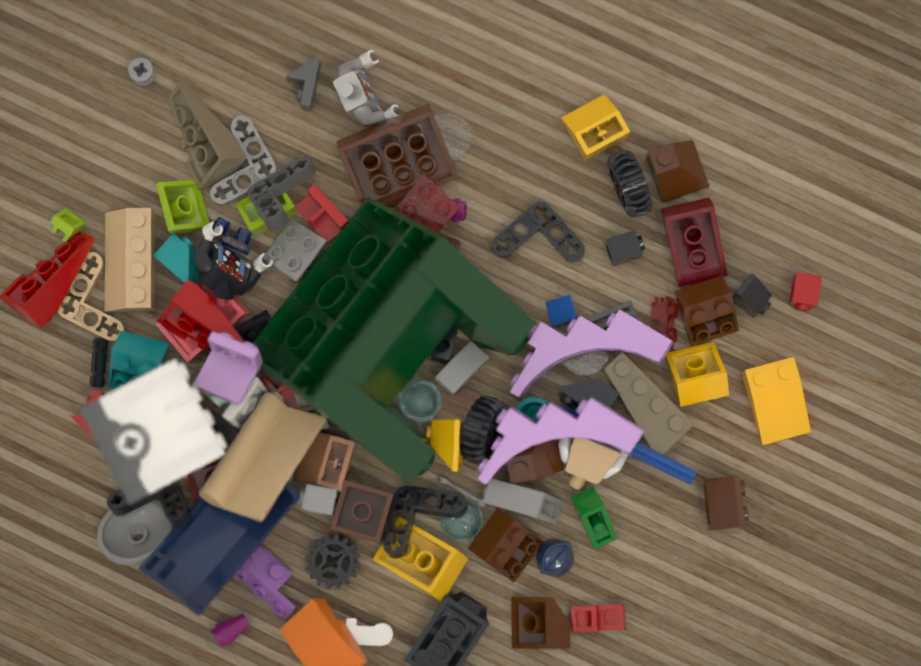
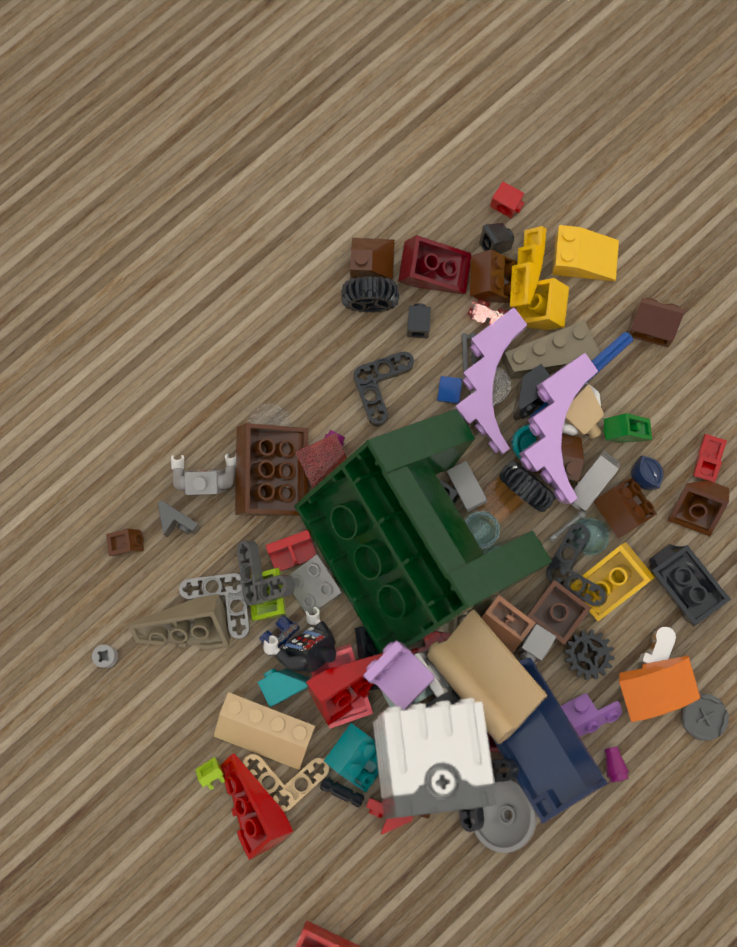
camera: 70 degrees left, 5 degrees down
(182, 206) = (237, 665): lime slope -> none
(264, 41) = (125, 542): none -> reddish brown bracket
(446, 441) = (525, 518): yellow slope -> none
(596, 127) = (311, 304): yellow slope -> none
(728, 343) = (528, 268): none -> yellow slope

